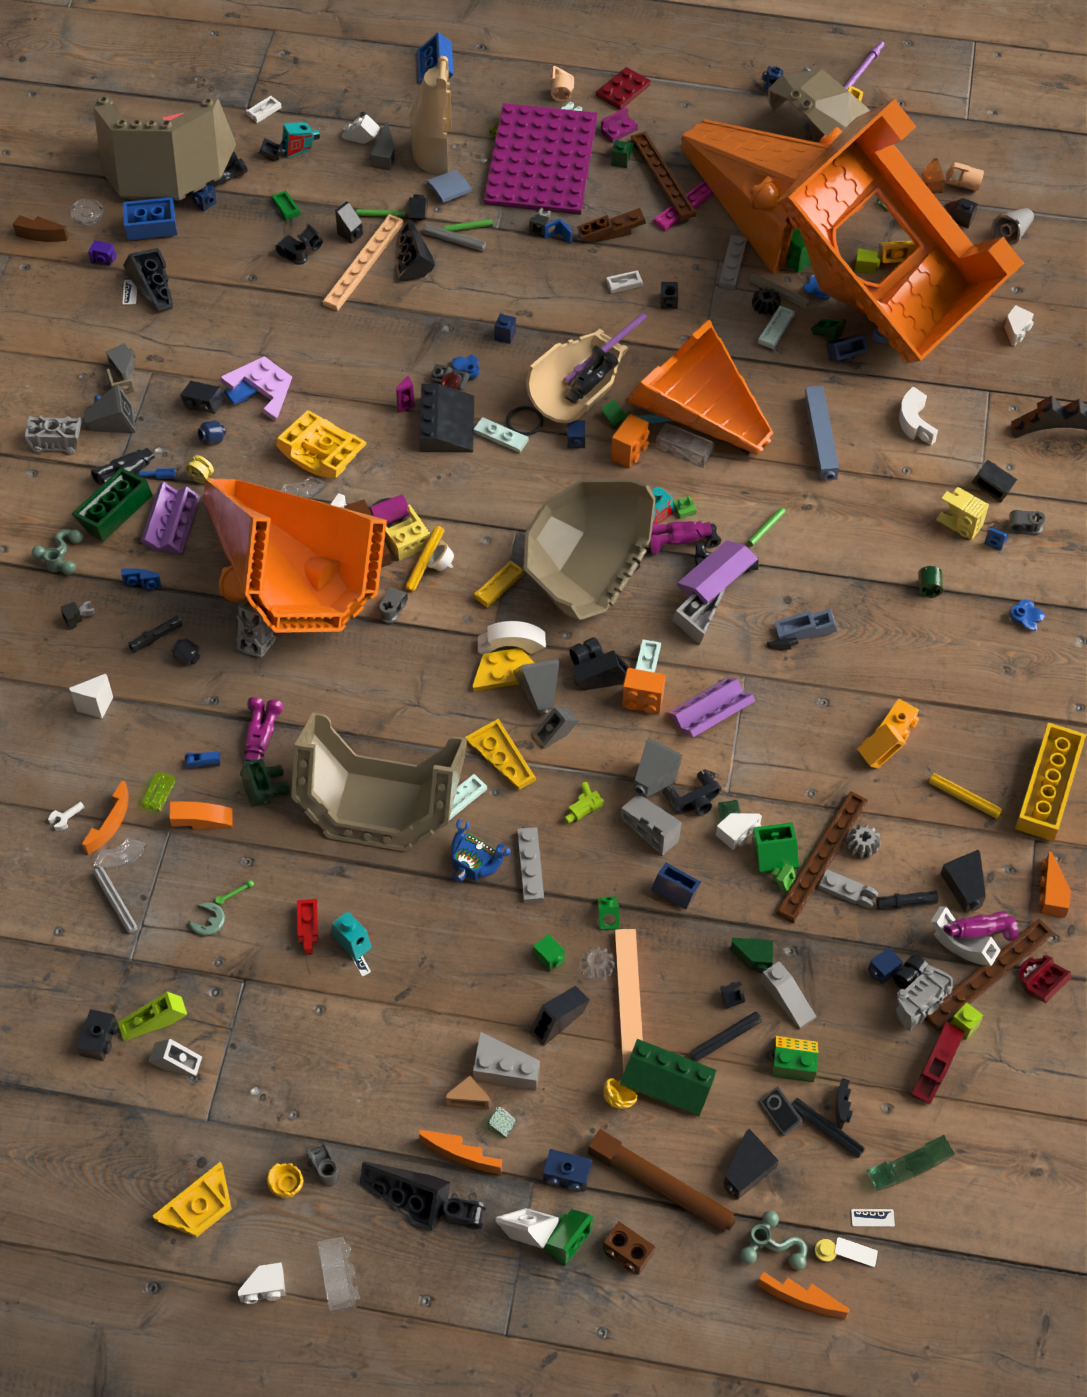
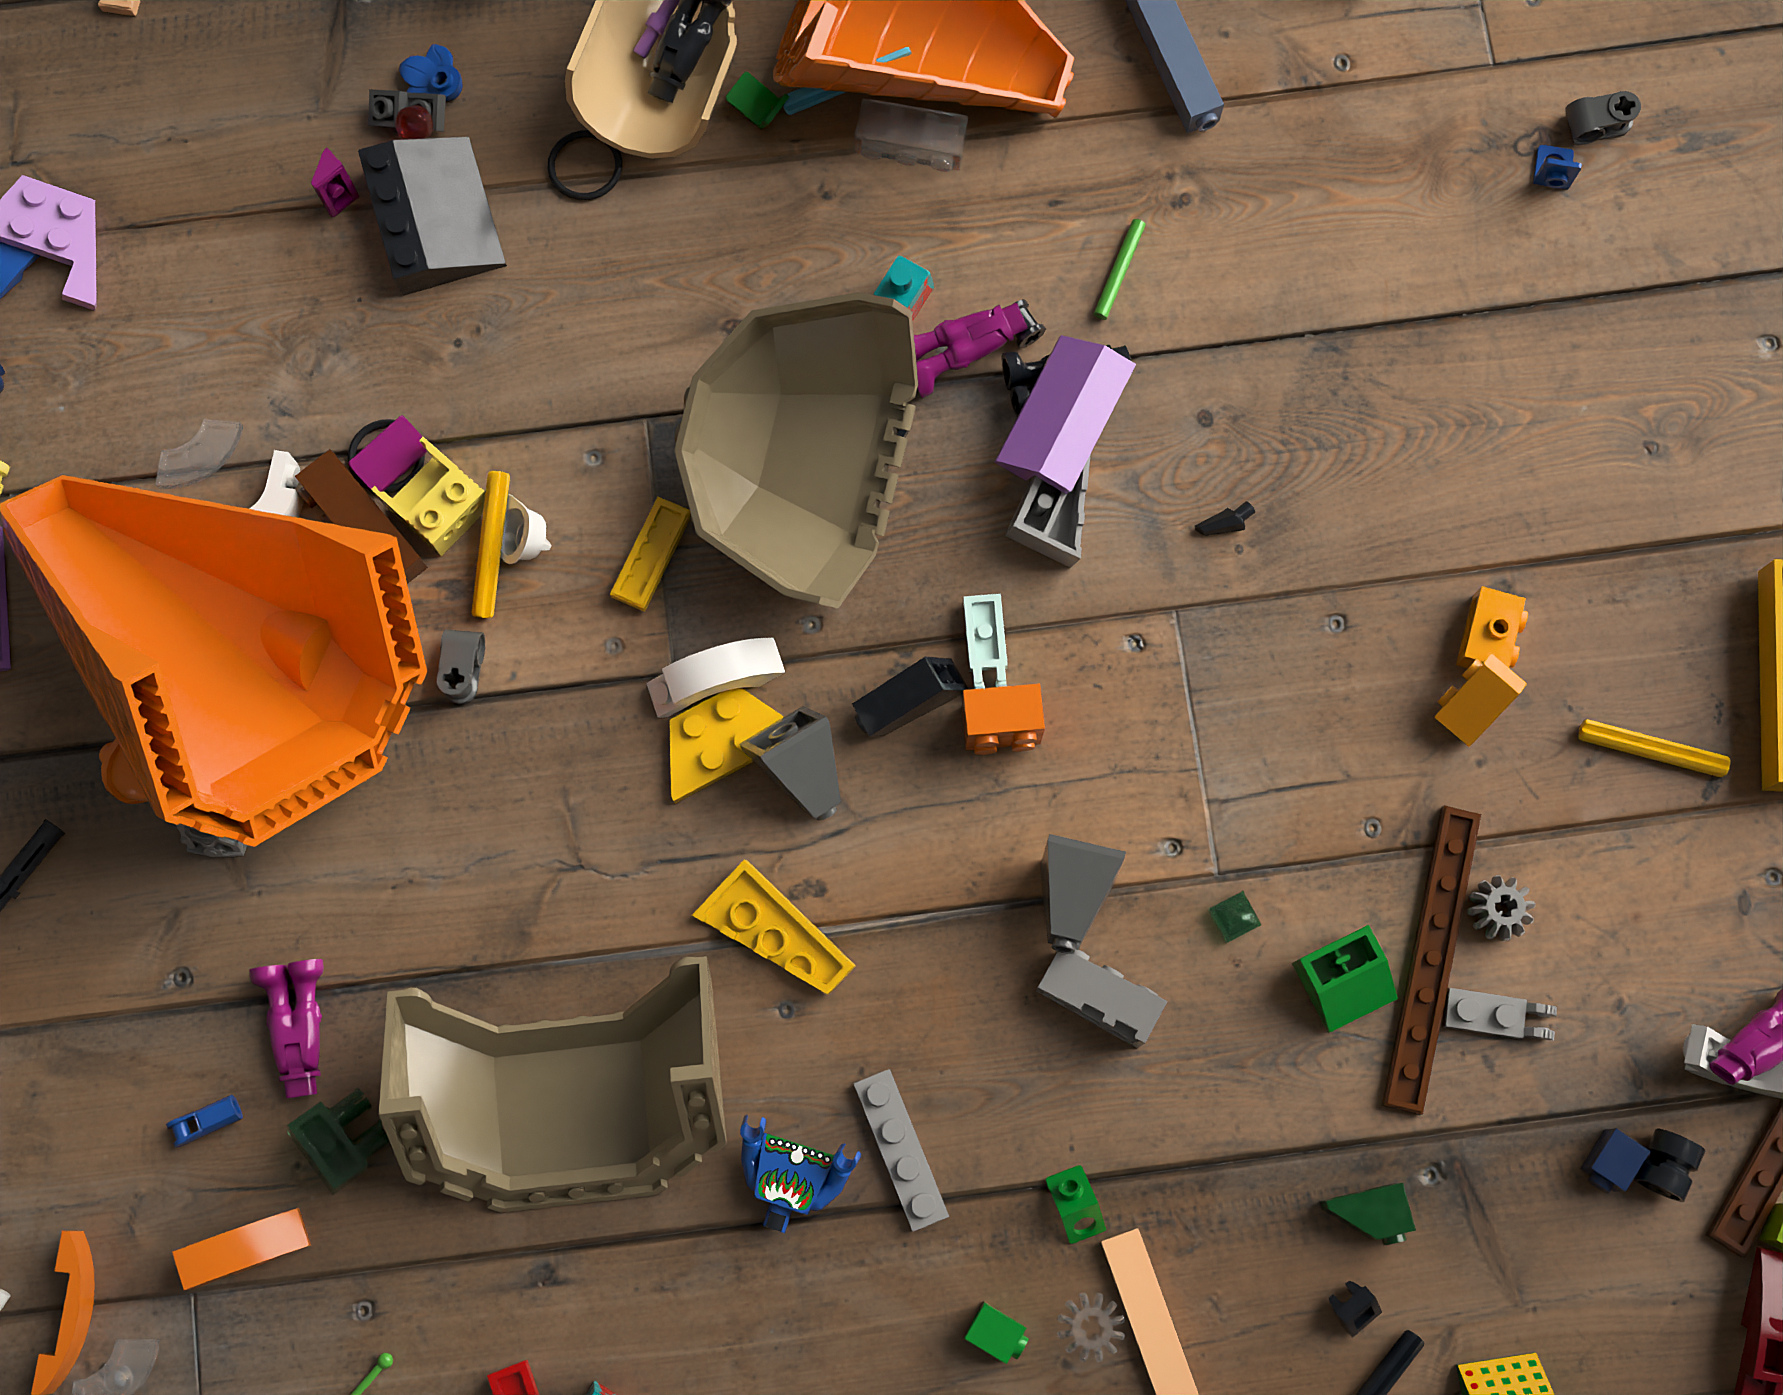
camera: 15 degrees left, 20 degrees up
(152, 805) = (157, 1216): clear neon green tile -> none
(185, 652) = (91, 896): black head -> none
(319, 445) = (202, 346): yellow slope -> none
(467, 793) = (736, 1034): light aqua plate -> none
(501, 435) = (549, 212): light aqua plate -> none
(555, 726) = (857, 840): dark grey slope -> none
(576, 434) = (697, 173): dark blue brick -> none
(581, 653) = (867, 661): black wheel -> none
(587, 804) = (968, 983): lime piece -> none
(630, 441) = (807, 160): orange brick -> none
(669, 887) = (1189, 1120): dark blue brick -> none
(684, 507) = (952, 272): bright green tile -> none
(696, 800) = (1171, 917): black connector -> none
(710, 707) = (1134, 704): medium lavender slope -> none
(736, 828) = (1261, 954): white slope -> none
(784, 877) = (1379, 1033): bright green tile -> none
(787, 994) = (1457, 1278): light grey slope -> none
(806, 625) = (1259, 470): sand blue slope -> none
(901, 900) = (1599, 1013): black pin -> none
(923, 996) = (1708, 1219): light grey piece -> none
(930, 581) = (1464, 305): dark green piece -> none
(965, 511) = (1489, 137): light yellow piece -> none
(966, 880) = (1711, 933): black slope -> none
(994, 481) = (1520, 43): black brick -> none
(1027, 614) = (1657, 319): blue plate -> none

